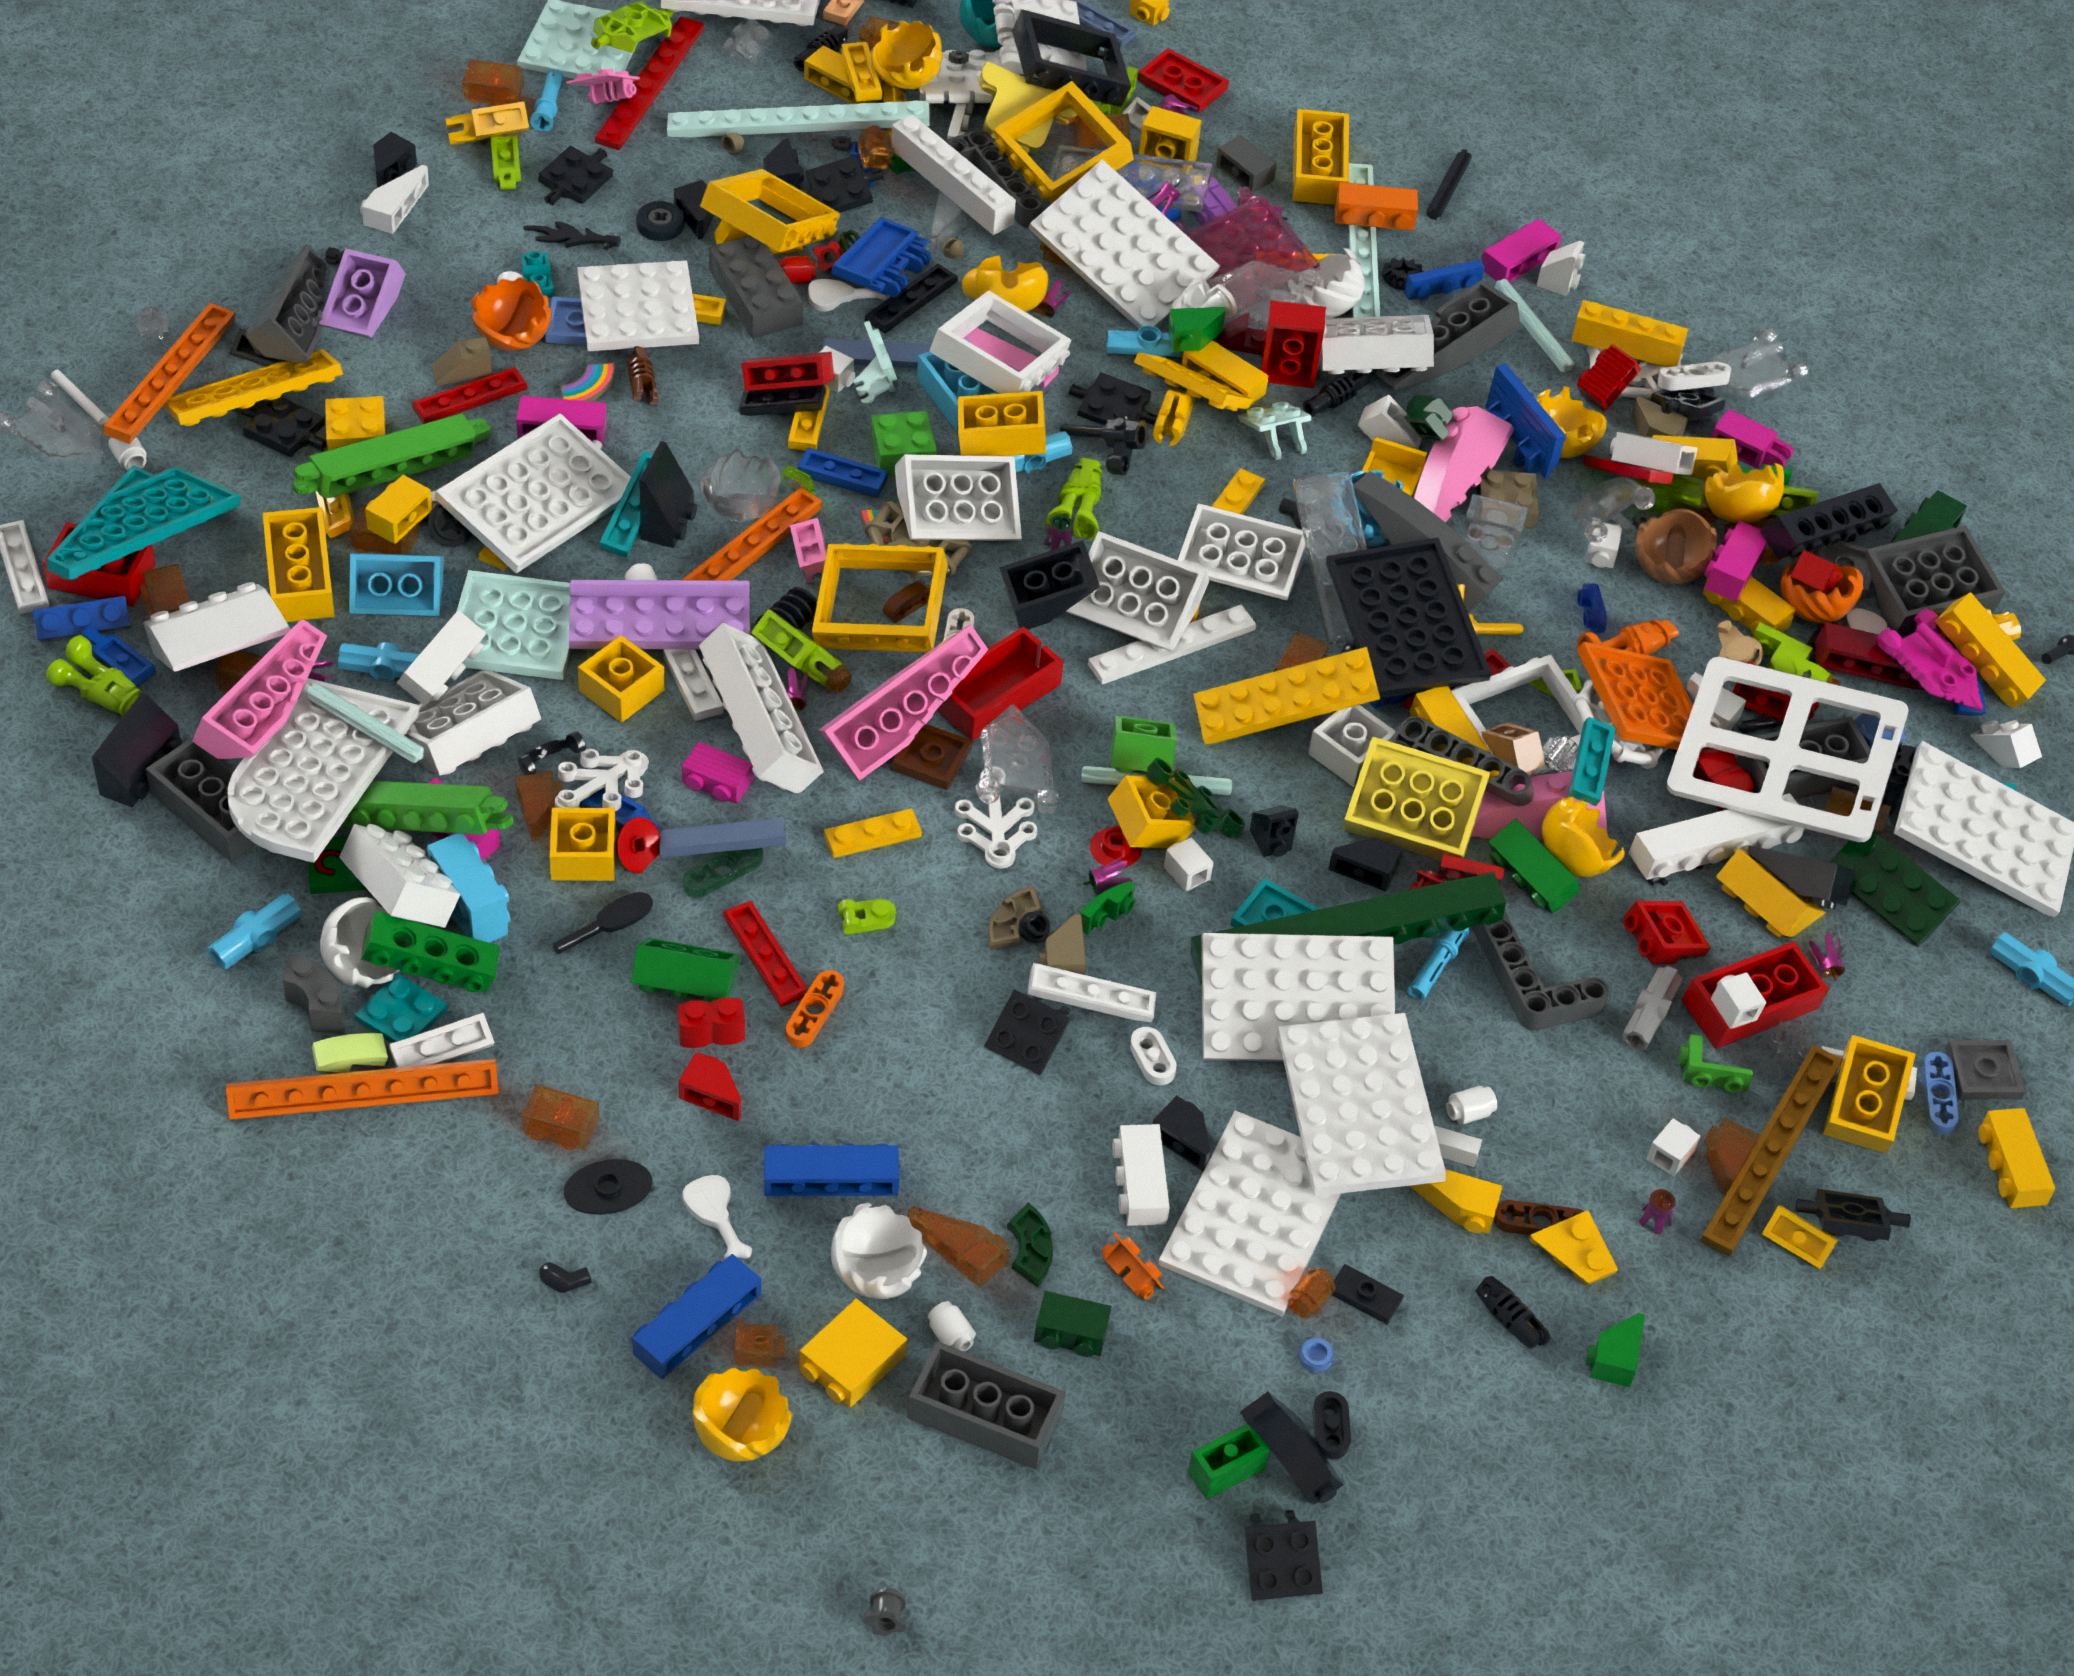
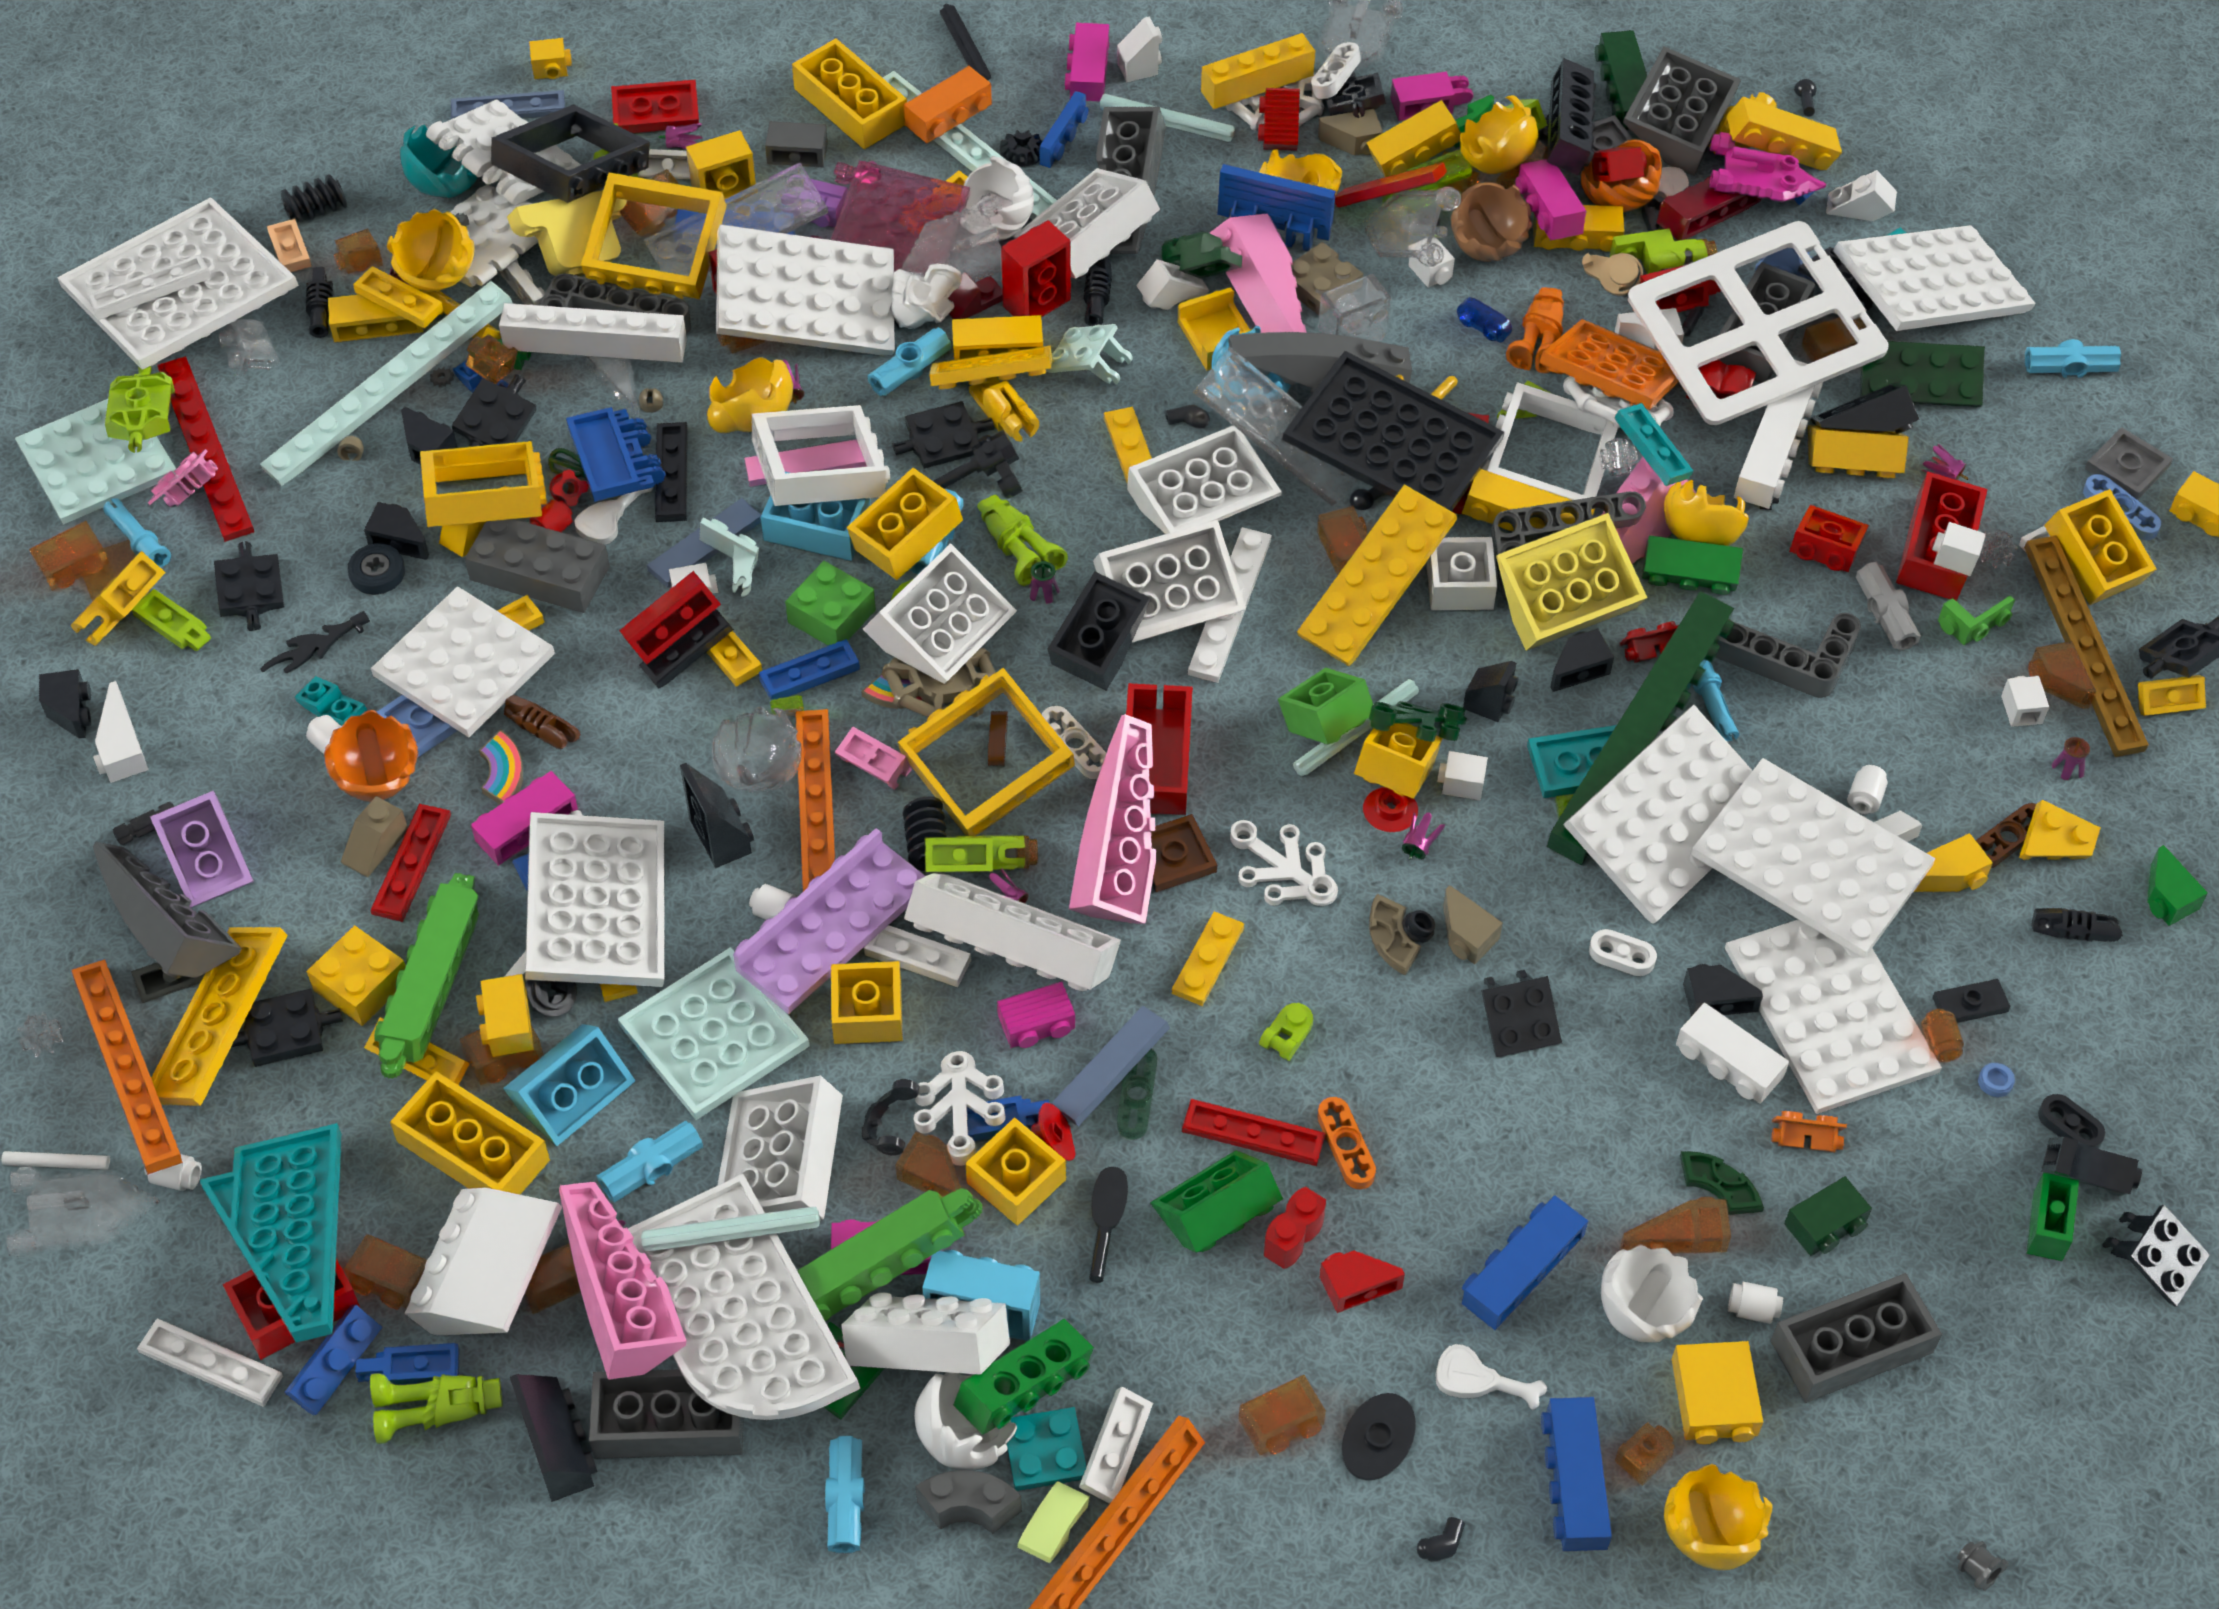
camera: 40 degrees left, 5 degrees up
(443, 659) = (708, 1115): white brick -> none
(626, 519) = (684, 840): teal plate -> none
(1016, 760) = (1249, 800): clear shield -> none
(1091, 993) = (1524, 942): white tile -> none
(1108, 904) = (1452, 862): green slope -> none
(1168, 192) = (794, 220): flat silver piece -> none
(1194, 327) = (943, 320): green slope -> none
(1459, 868) = (1661, 607): red plate -> none
(1516, 746) = (1584, 477): medium nougat slope -> none
(1653, 453) = (1400, 156): white brick -> none

